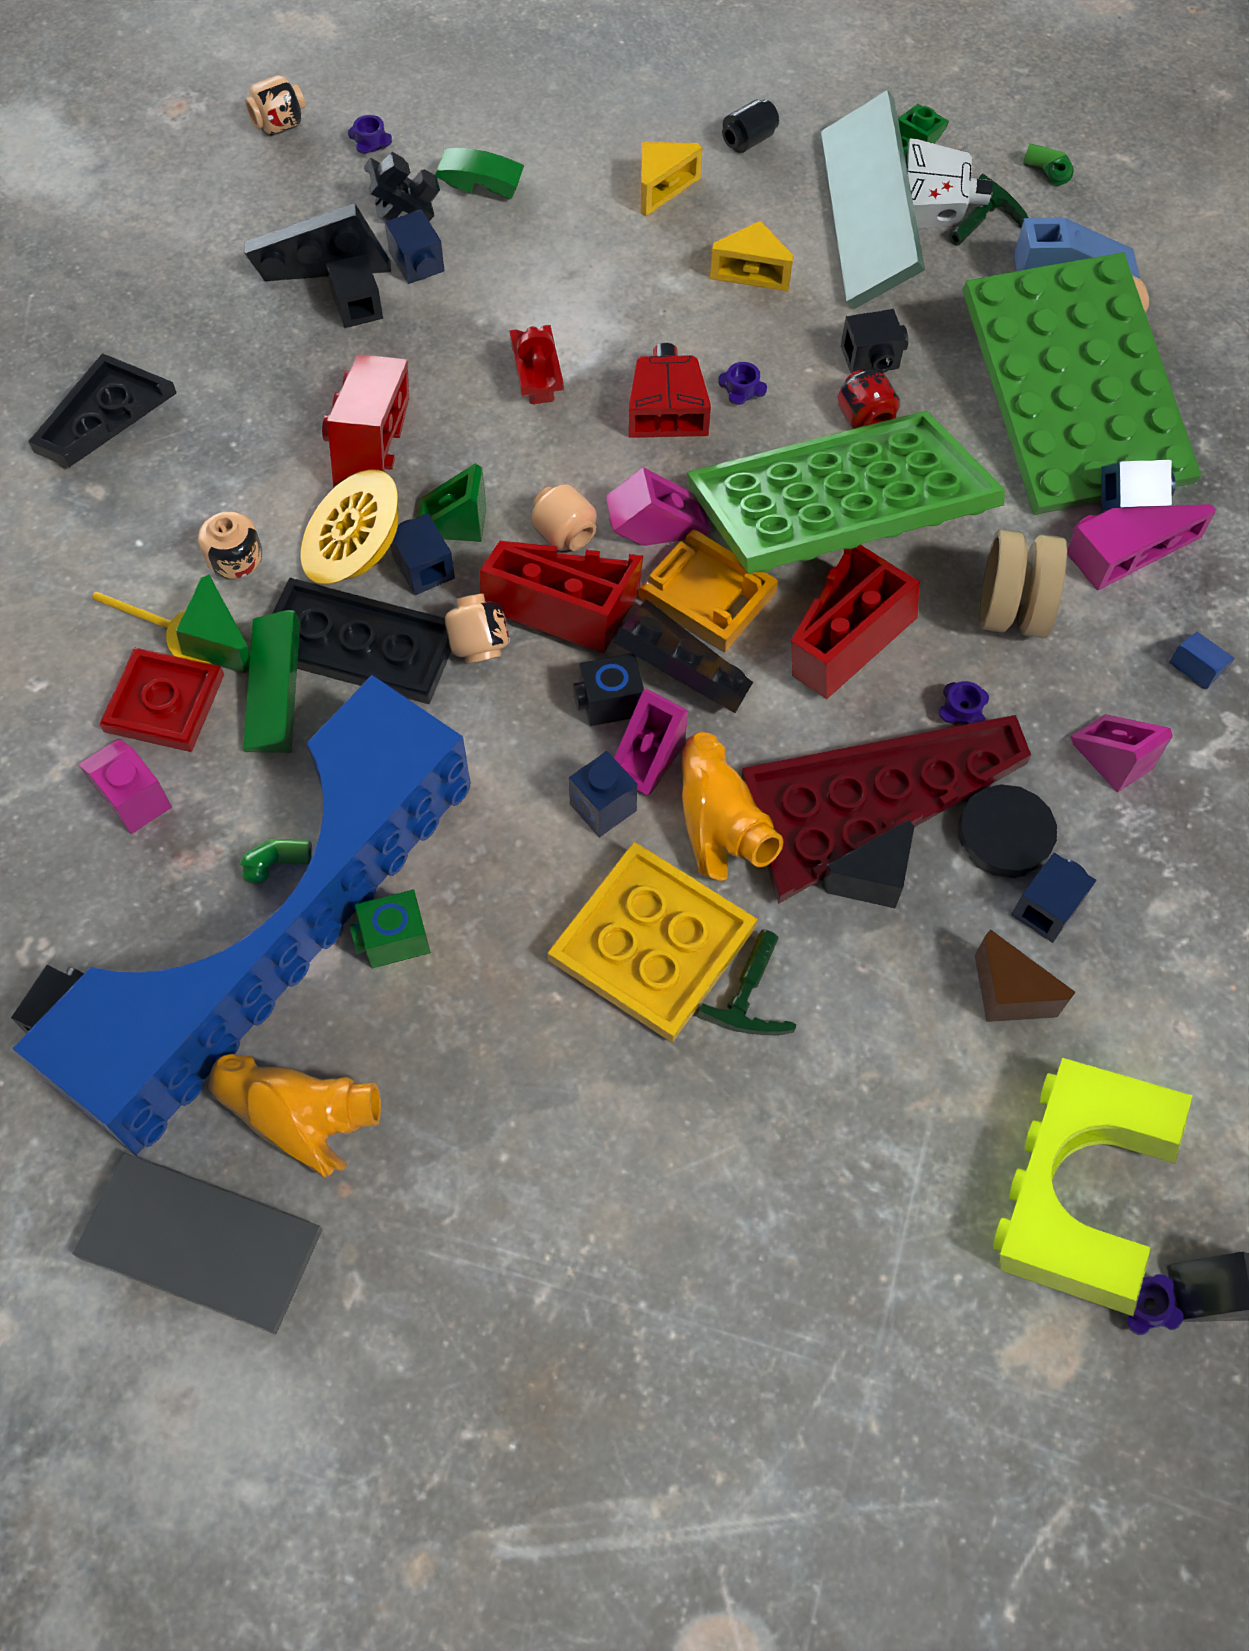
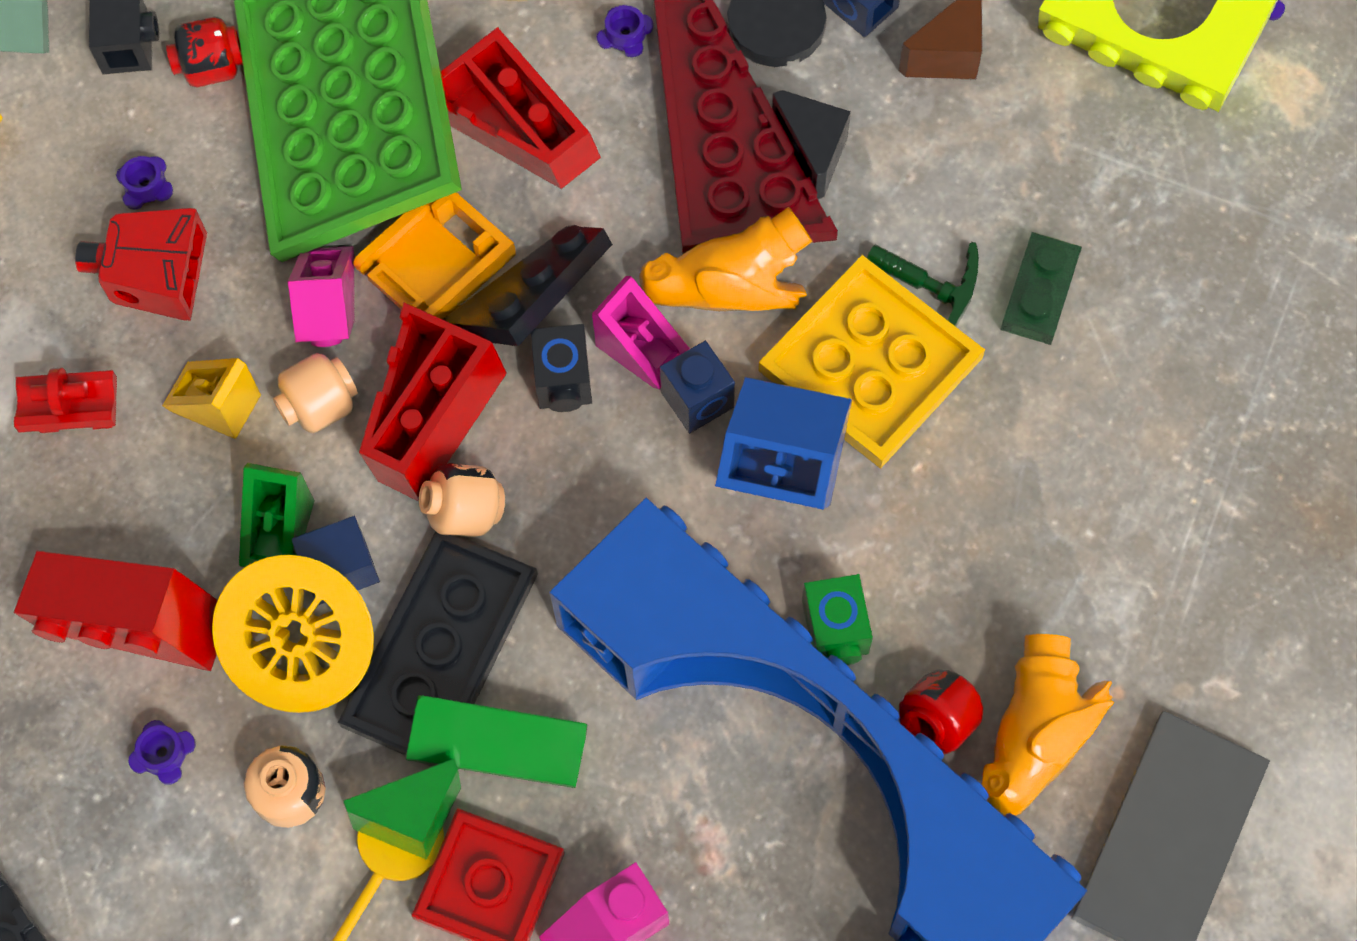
camera: 80 degrees left, 5 degrees up
(264, 471) = (156, 736): none -> dark purple plate
(273, 851) = (723, 755): arm -> none
(305, 1019) = (942, 708): none -> red head
(546, 863) = (784, 443): none -> blue slope
(554, 457) = (215, 394): none -> yellow slope
(757, 1094) = (1041, 288): none -> clear green plate

